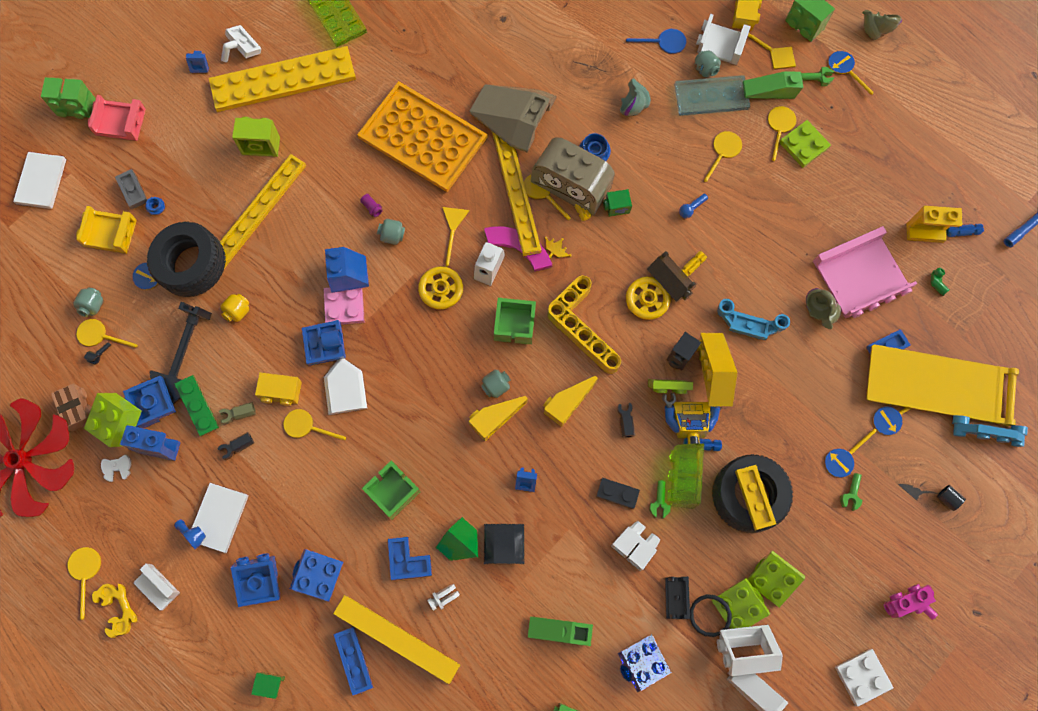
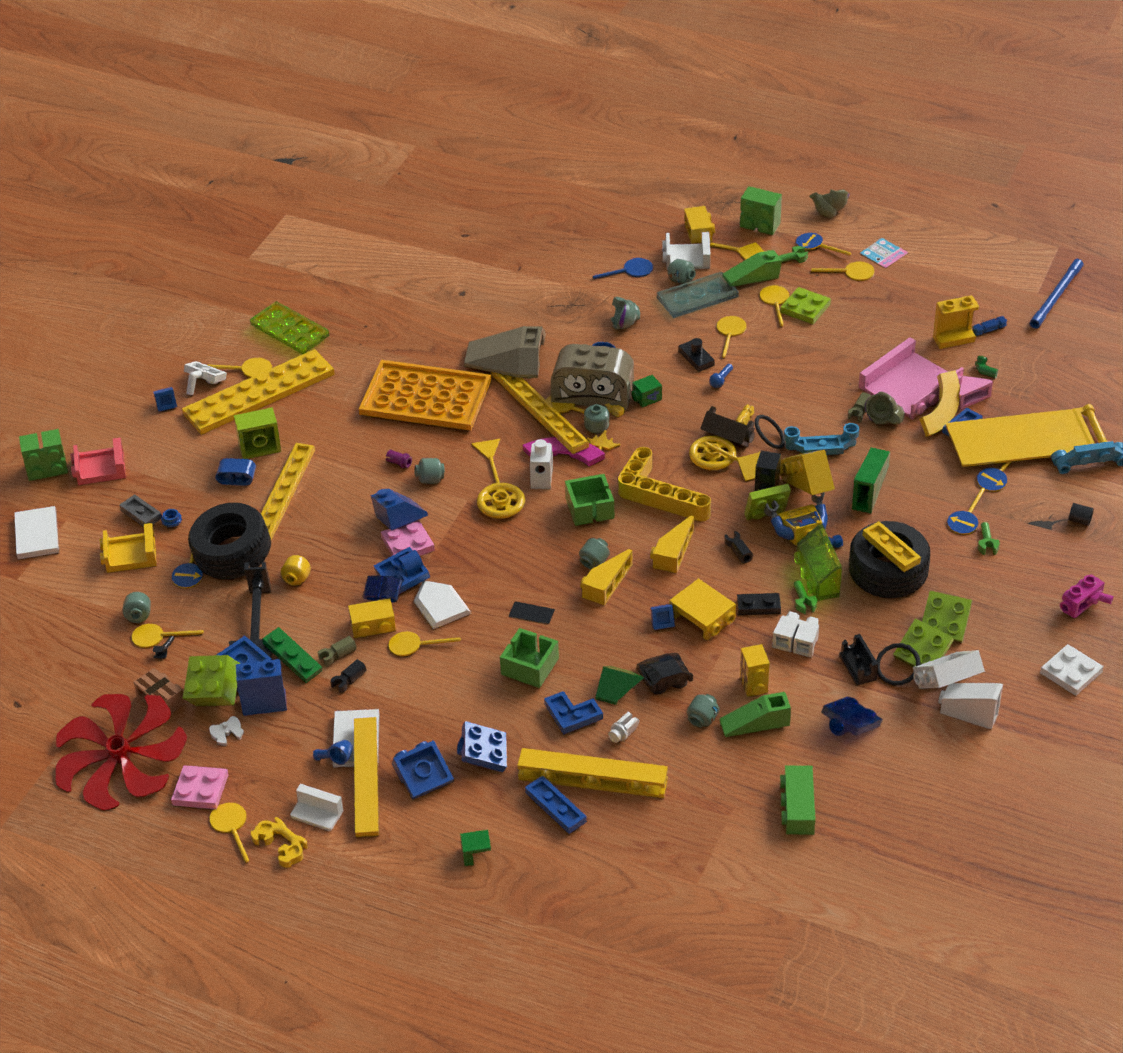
camera: 15 degrees left, 30 degrees down
(71, 524) = (199, 787): none -> bright pink plate
(207, 569) = (366, 777): none -> yellow tile
(226, 171) = (235, 471): none -> blue beam
(287, 48) = (250, 367): none -> yellow piece
(296, 361) = (382, 588): none -> clear blue beam
(419, 427) = (531, 612): none -> black sticker
(518, 604) = (702, 710): none -> sand green head
(559, 222) = (596, 419): none -> sand green head
(565, 486) = (704, 608): none -> yellow panel
(578, 583) = (754, 670): none -> yellow brick
(674, 325) = (746, 463): none -> yellow piece
(681, 171) = (696, 354): none -> black tile
(696, 295) = (762, 435): none -> black piece
(776, 386) = (869, 480): none -> green slope
(802, 290) = (859, 407): none -> olive bar
(870, 115) = (856, 270): none -> yellow piece
(877, 327) = (947, 405): none -> yellow tile
(905, 100) = (884, 252): none -> sticker
(914, 308) = (973, 391): none -> bright pink slope

